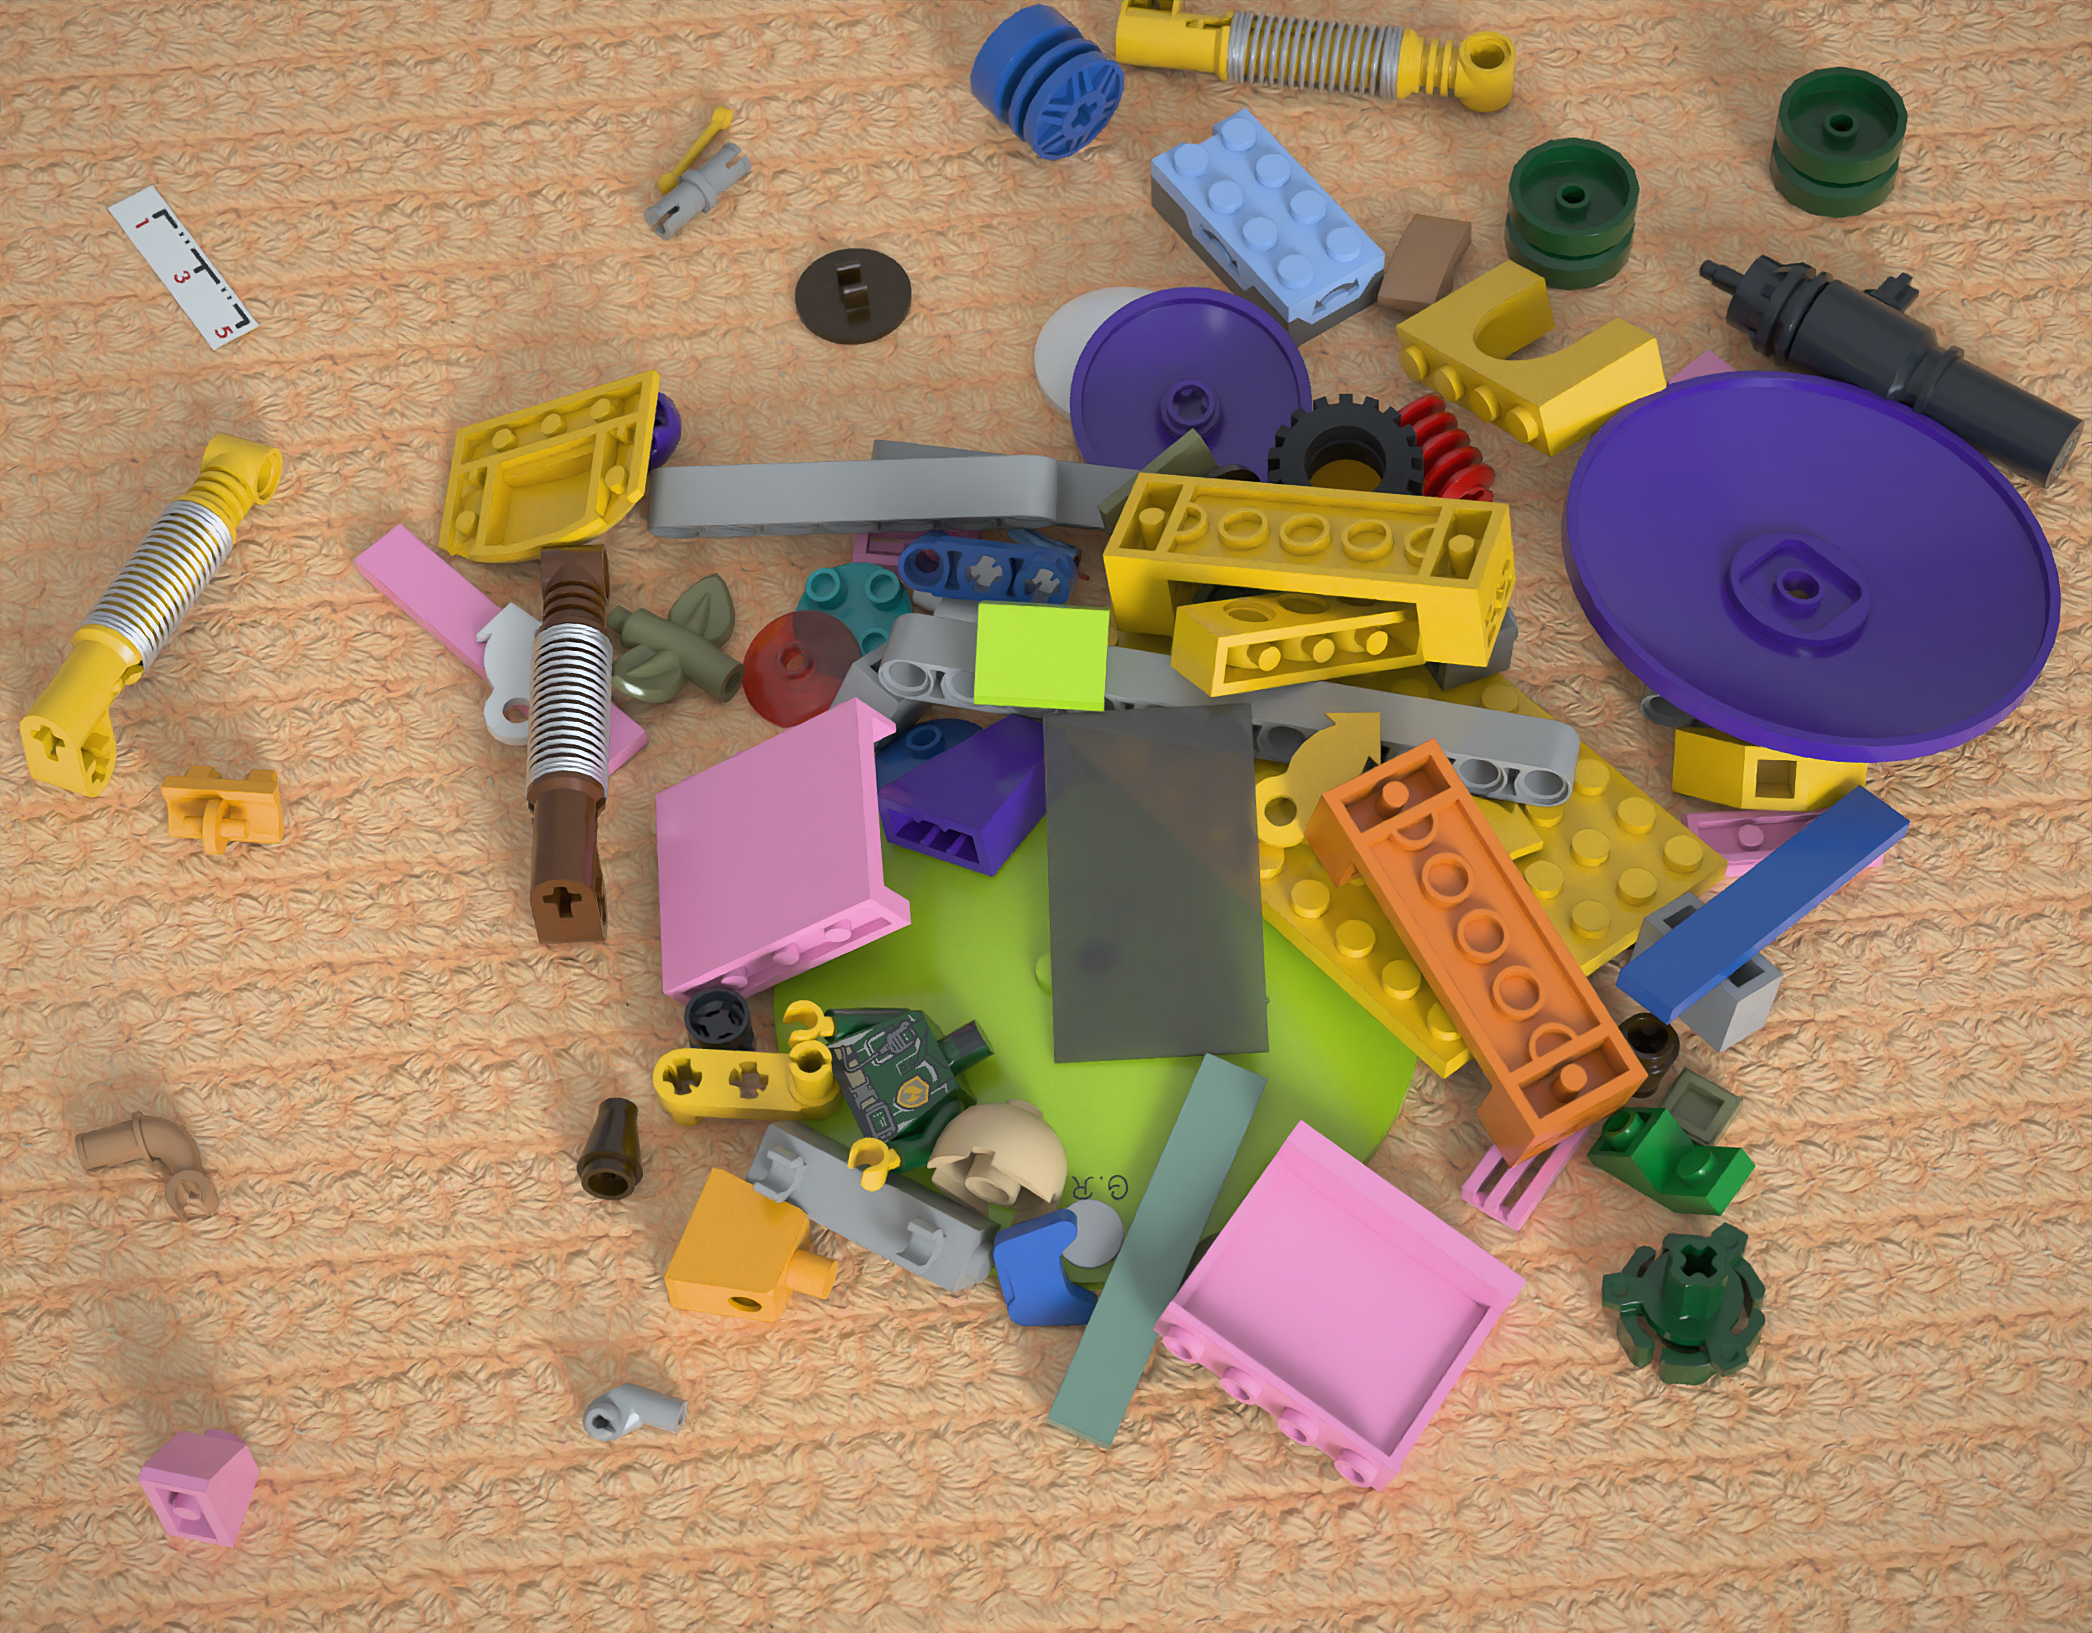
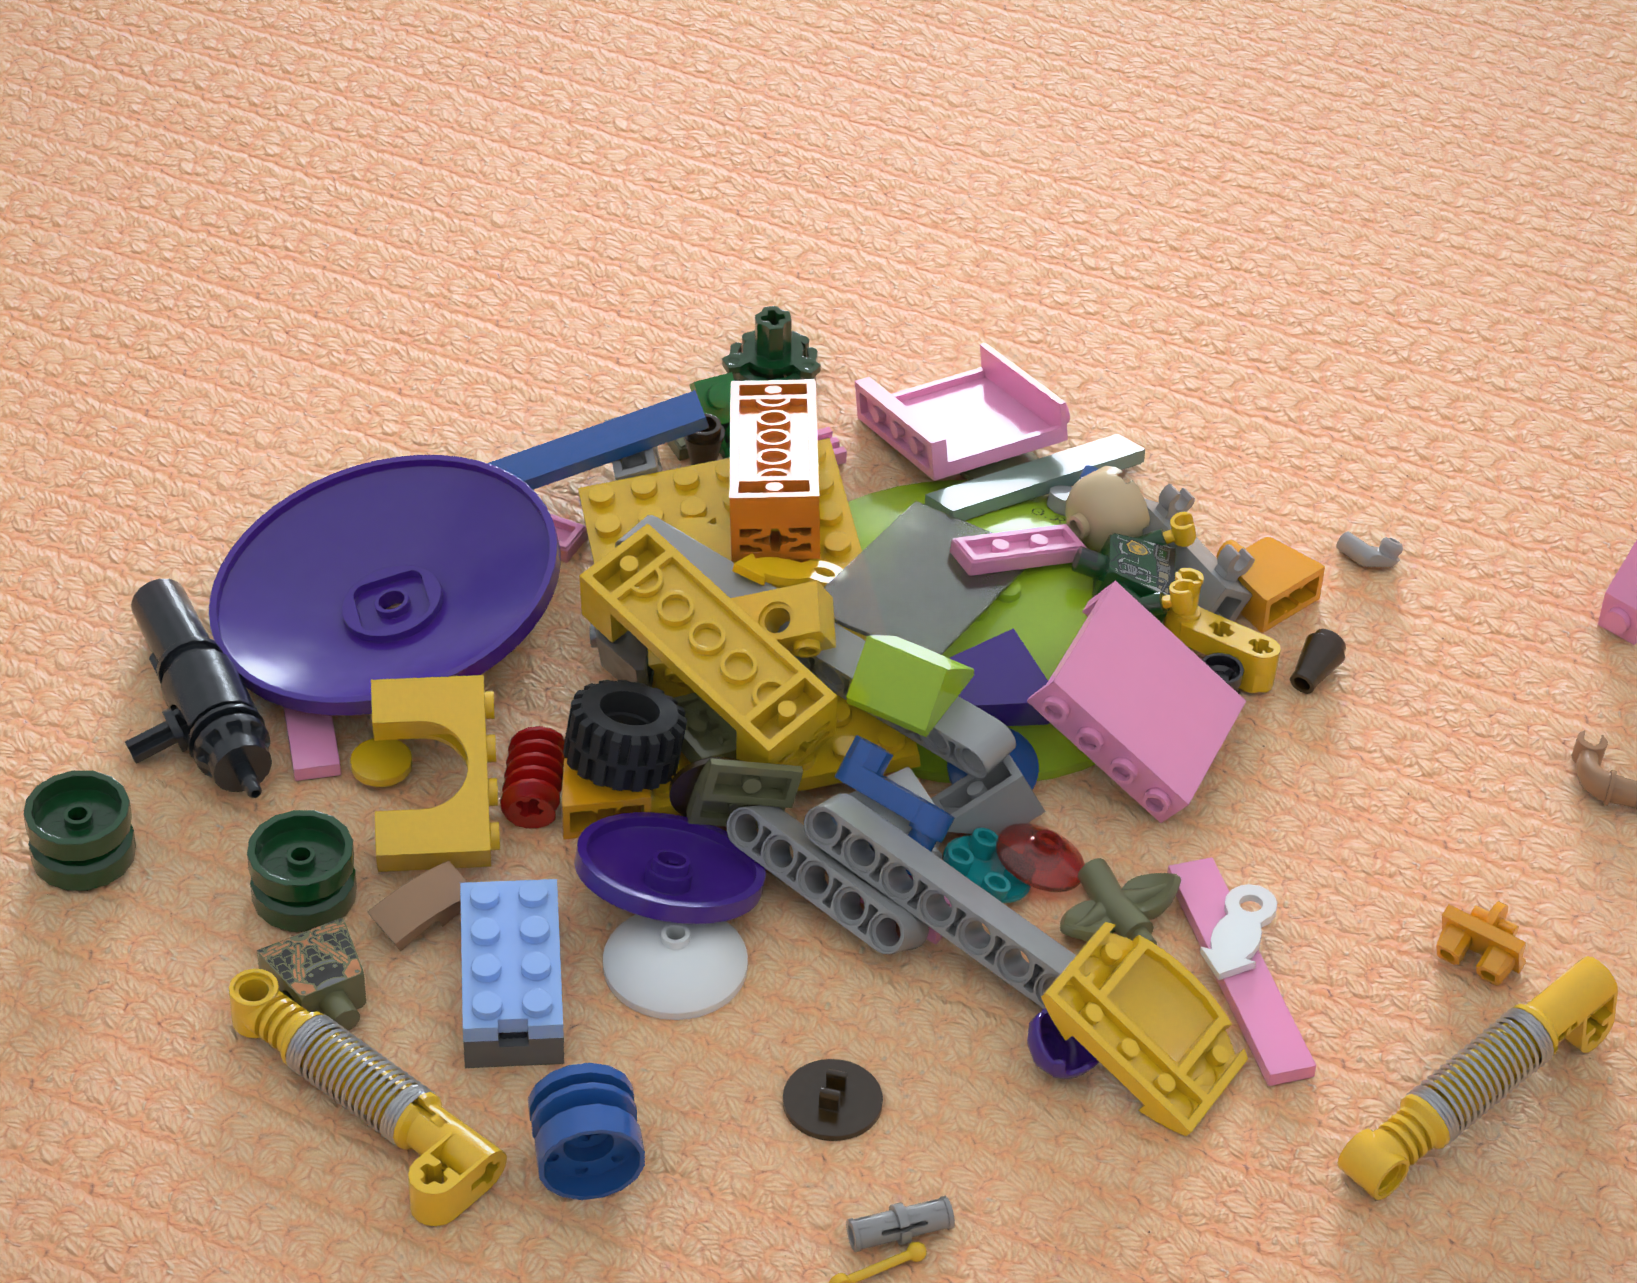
camera: 155 degrees left, 15 degrees down
(565, 729) = (1232, 841): reddish brown piece -> none
(1075, 1021) = (1016, 549): none -> bright pink tile
(1455, 135) = (319, 971): none -> olive torso

